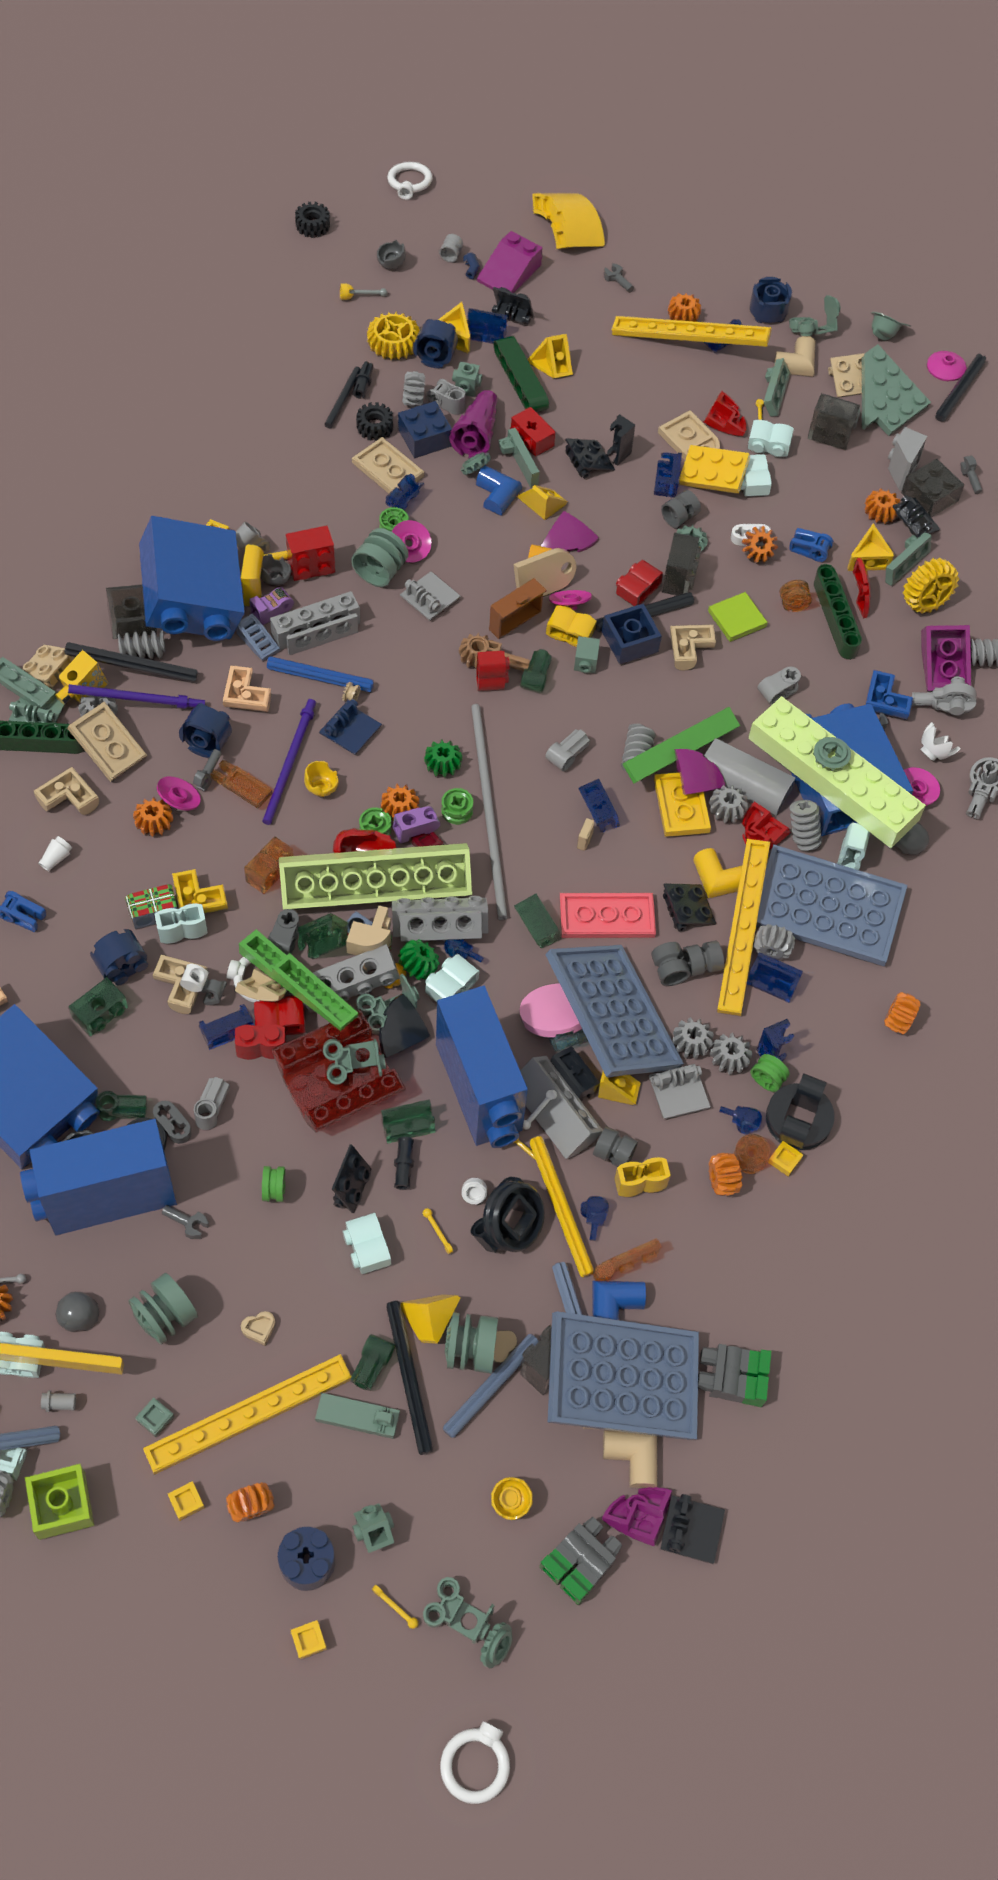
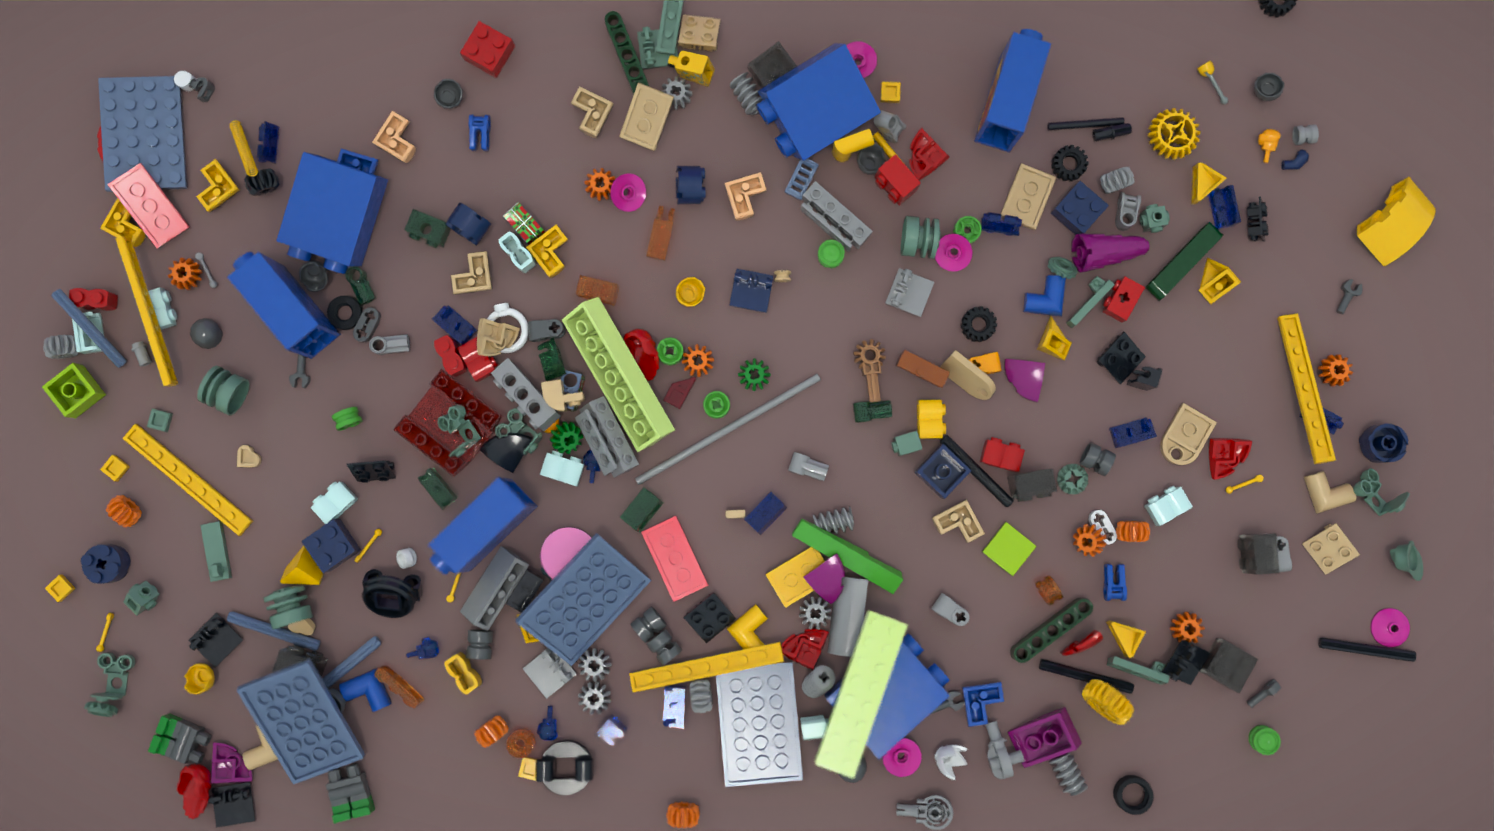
camera: 70 degrees right, 25 degrees up
(55, 853) = (538, 130): white cone -> none
(133, 662) = (727, 95): black axle -> none
(181, 701) = (712, 150): dark purple bar -> none
(196, 980) = (472, 288): leg -> none
(202, 778) = (652, 204): dark grey bar -> none
(271, 605) = (837, 173): medium lavender leg -> none
(282, 421) = (1013, 90): none -> blue brick
(292, 523) = (925, 155): none -> red brick
(297, 979) = (501, 360): bright green slope -> none
(306, 715) = (748, 251): dark purple bar -> none
(318, 673) = (791, 243): blue axle -> none
(352, 643) = (831, 253): none -> bright green wheel
(375, 1355) = (258, 545): clear green piece -> none
(403, 1163) = (405, 500): black pin -> none
(409, 1378) = (255, 573): black axle -> none
(410, 189) = (1360, 61): white piece -> none
(415, 822) = (682, 382): medium lavender leg -> none
(419, 1266) = (331, 545): none -> dark blue brick
(435, 343) = (1178, 174): dark blue brick -> none
(442, 275) = (1268, 141): none -> light orange piece
(470, 1462) = (215, 640): none -> black hinge
(489, 1736) = (48, 726): white piece -> none
(492, 670) = (849, 377): red brick -> none
(494, 541) = (976, 335): none -> black tyre
(511, 263) = (1311, 195): magenta slope -> none
(550, 1095) = (492, 583): white hinge -> none
(561, 1207) = (421, 623): yellow axle -> none
(570, 598) = (958, 406): dark pink dish -> none
(655, 1564) = (194, 786): none -> red hair
(714, 469) = (1154, 470): yellow plate -> none
(766, 507) = (1133, 531): none -> orange gear
(770, 438) = (1217, 504): light aqua brick -> none
(770, 1072) = (587, 733): bright green wheel -> none
(778, 379) = (1296, 484): sand green hinge -> none
(827, 746) = (868, 695): sand green gear -> none
(885, 616) = (1084, 675): none -> black axle
(888, 393) = (1322, 588): sand green wing -> none
(905, 455) = (1249, 629): light grey slope -> none

